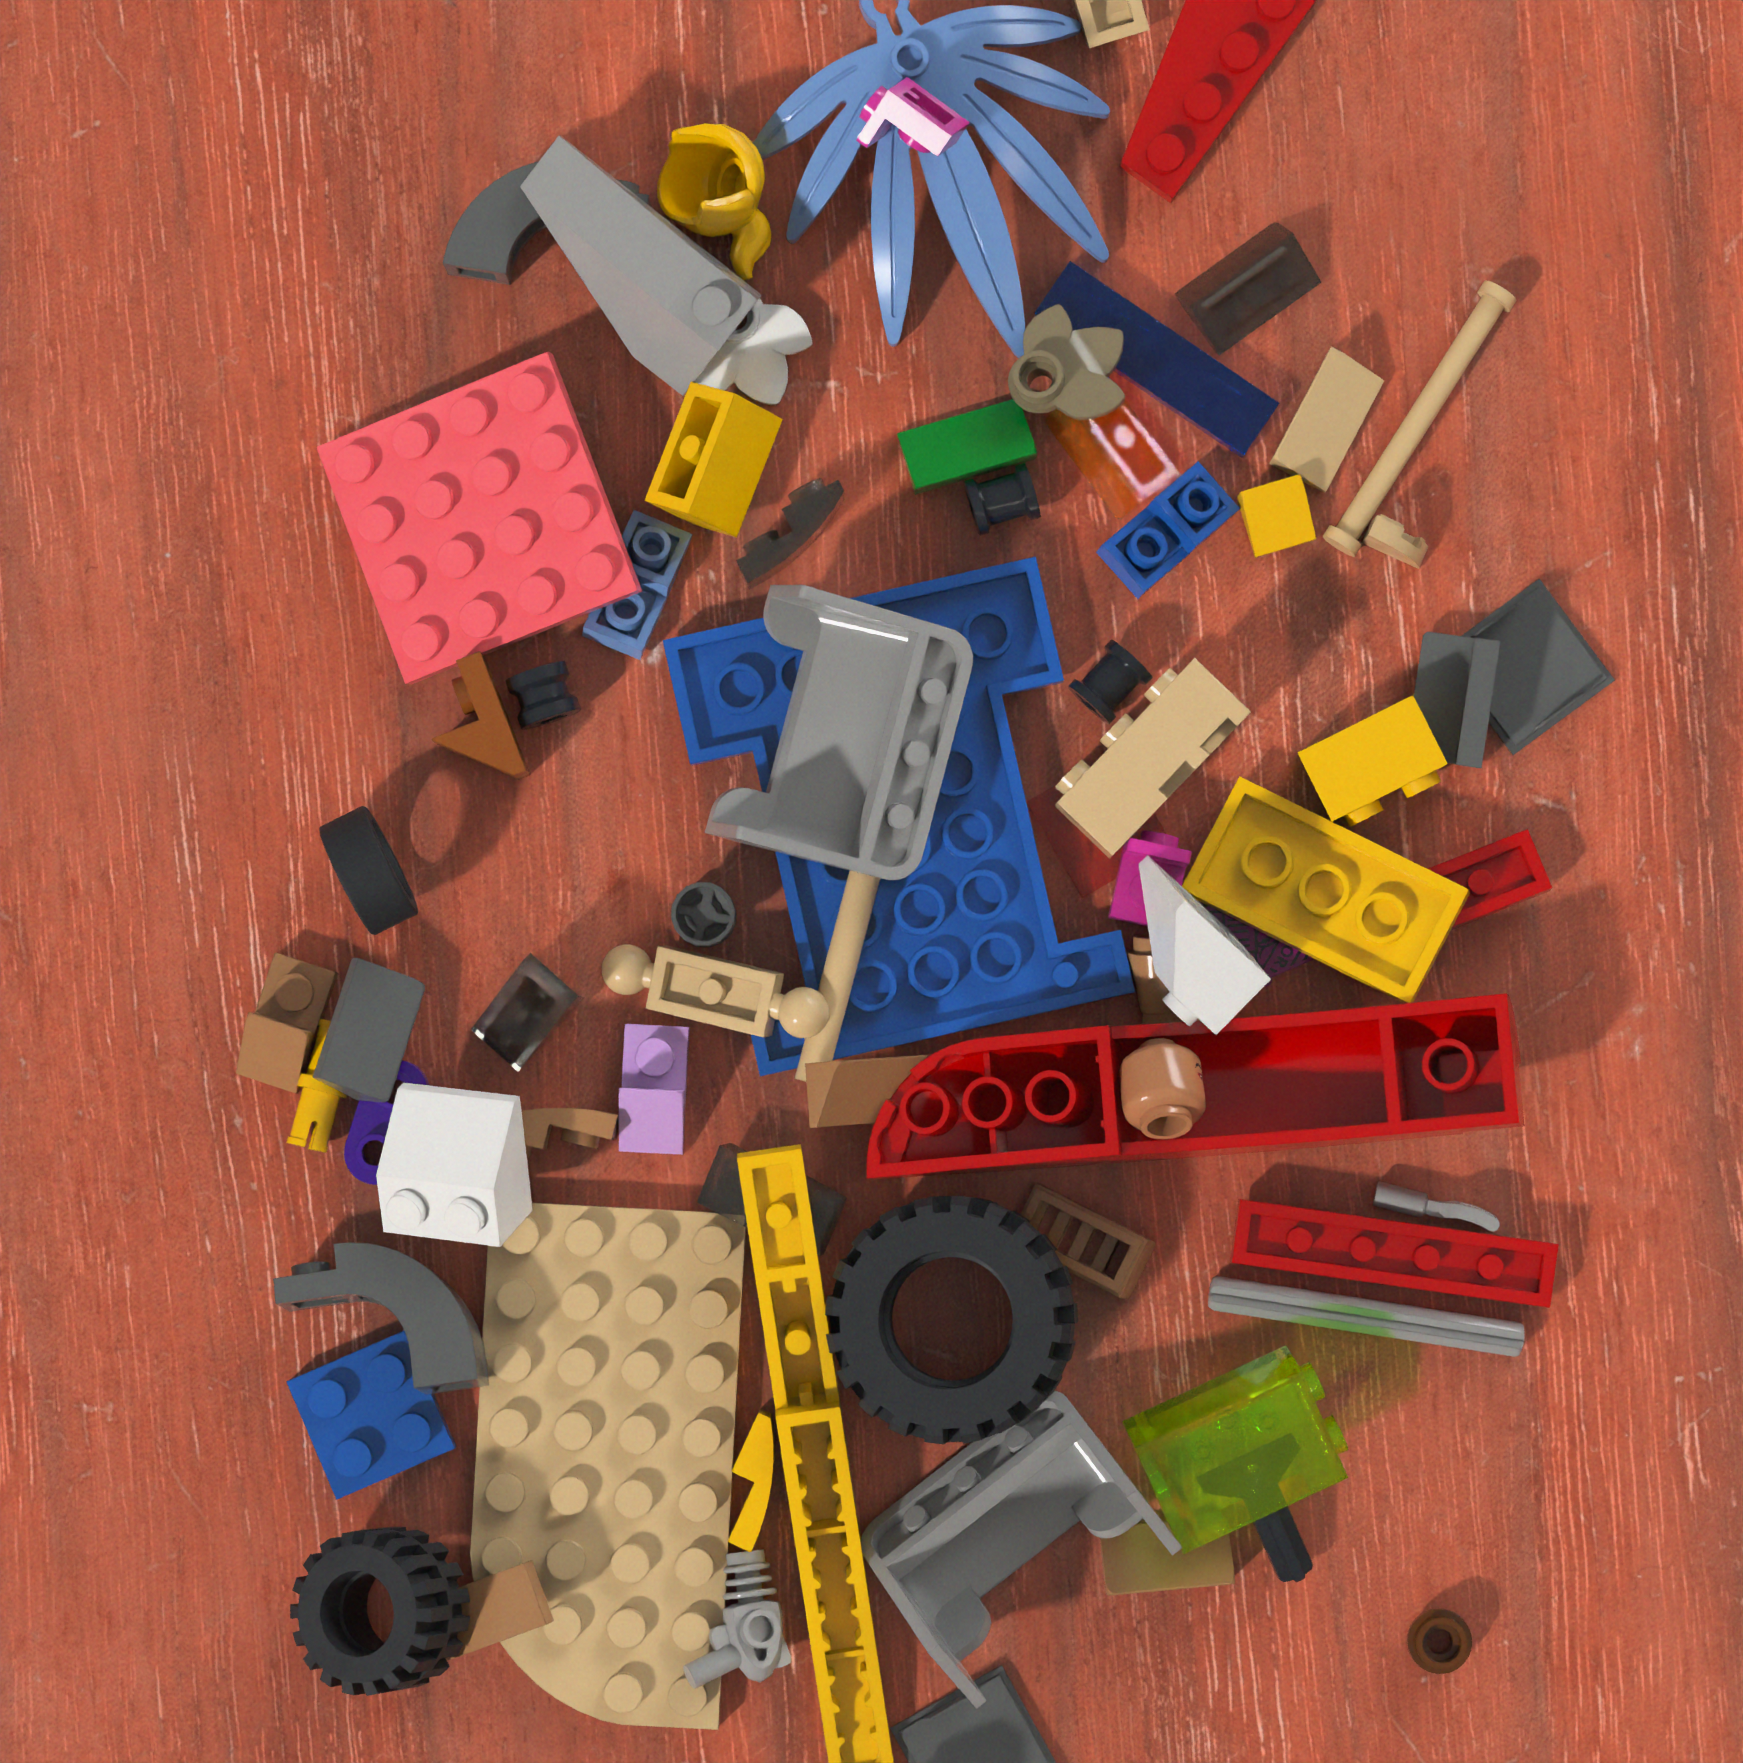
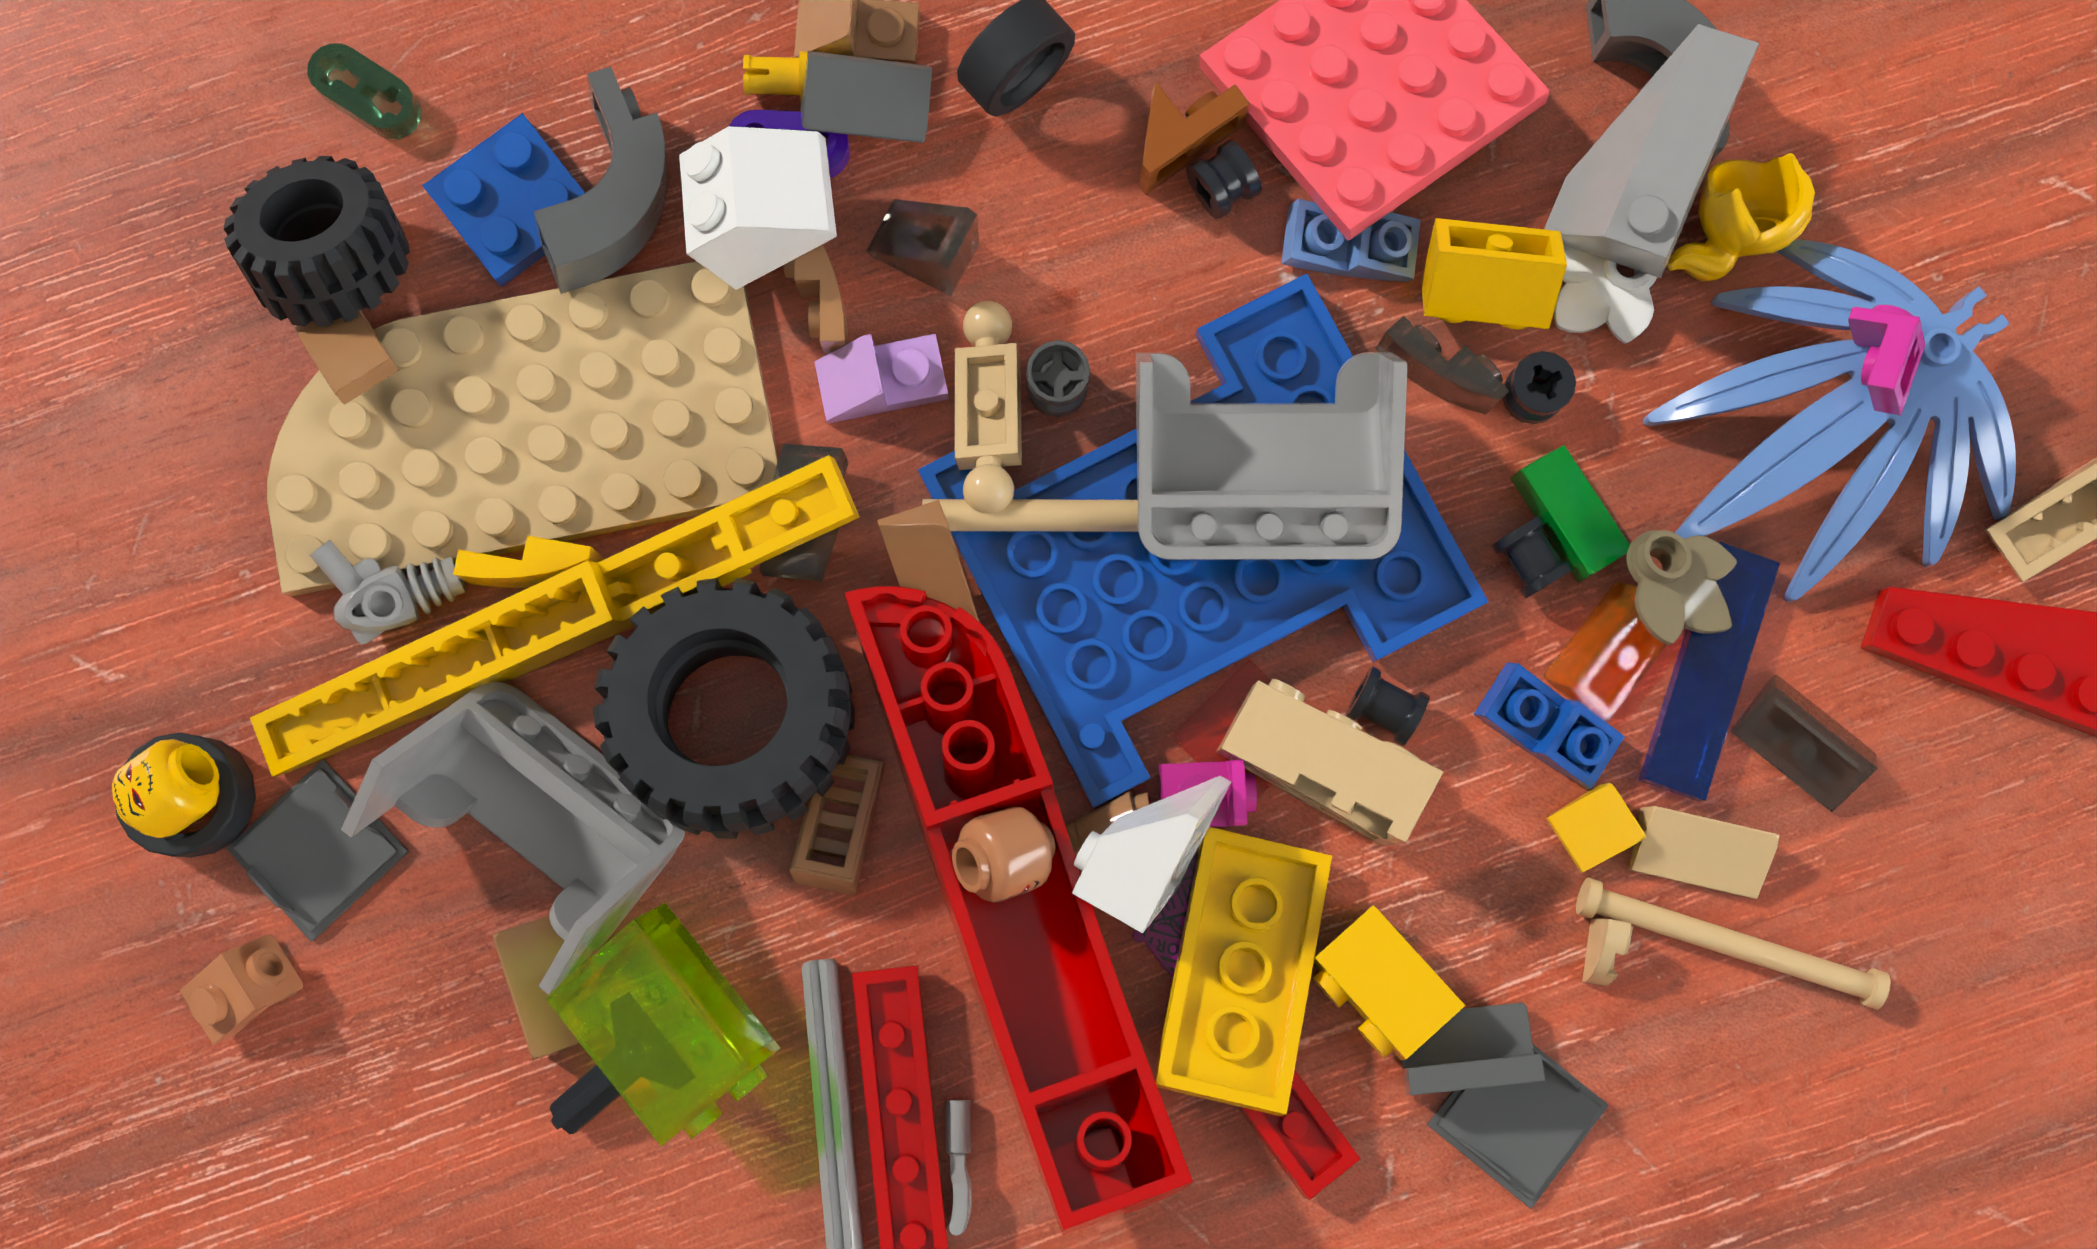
camera: 70 degrees right, 5 degrees down
(208, 1525) = (371, 81): none -> clear green beam
(837, 455) = (1528, 396): none -> black wheel

